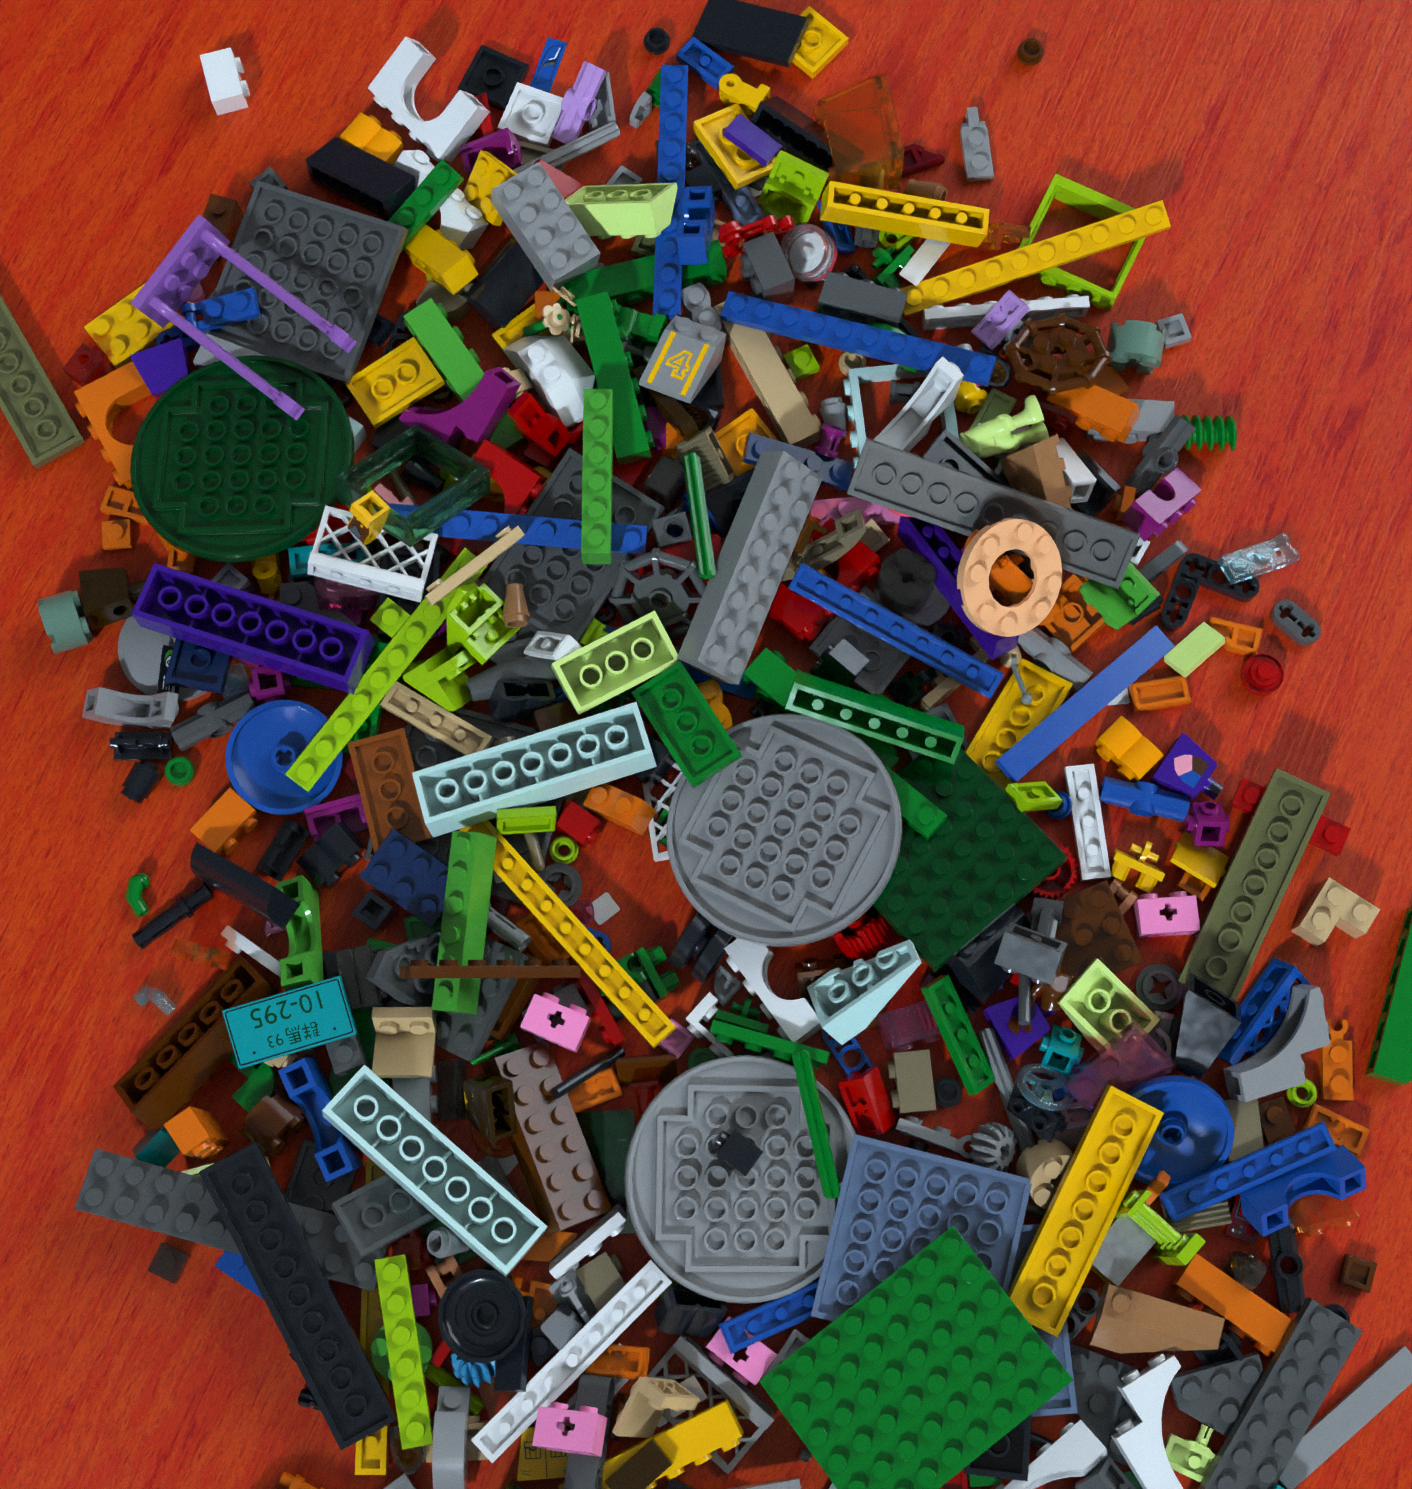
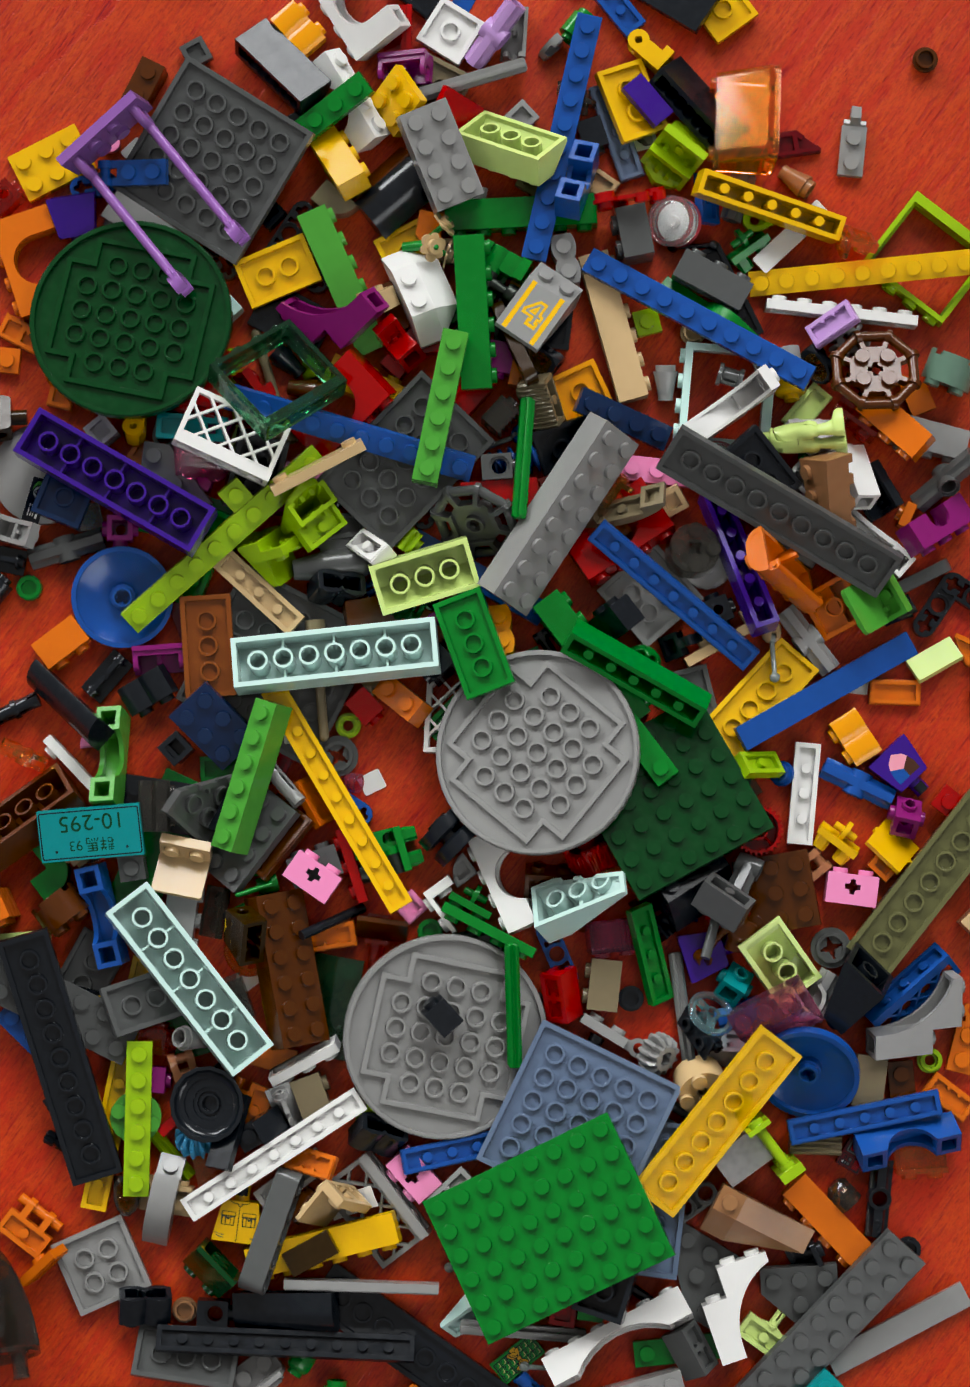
camera: 15 degrees right, 10 degrees up
(366, 522) = (231, 411): yellow leg -> none
(478, 969) = (257, 822): reddish brown plate -> none
(515, 607) = (346, 505): medium nougat cone -> none
(525, 820) = (320, 697): lime tile -> none
(585, 1438) = (272, 1219): bright pink brick -> none
(829, 440) = (655, 404): magenta bush -> none
(976, 567) = (756, 555): light nougat plate -> none
(1157, 1185) = (783, 1115): orange tile -> none
(1357, 1273) = (937, 1216): reddish brown tile -> none

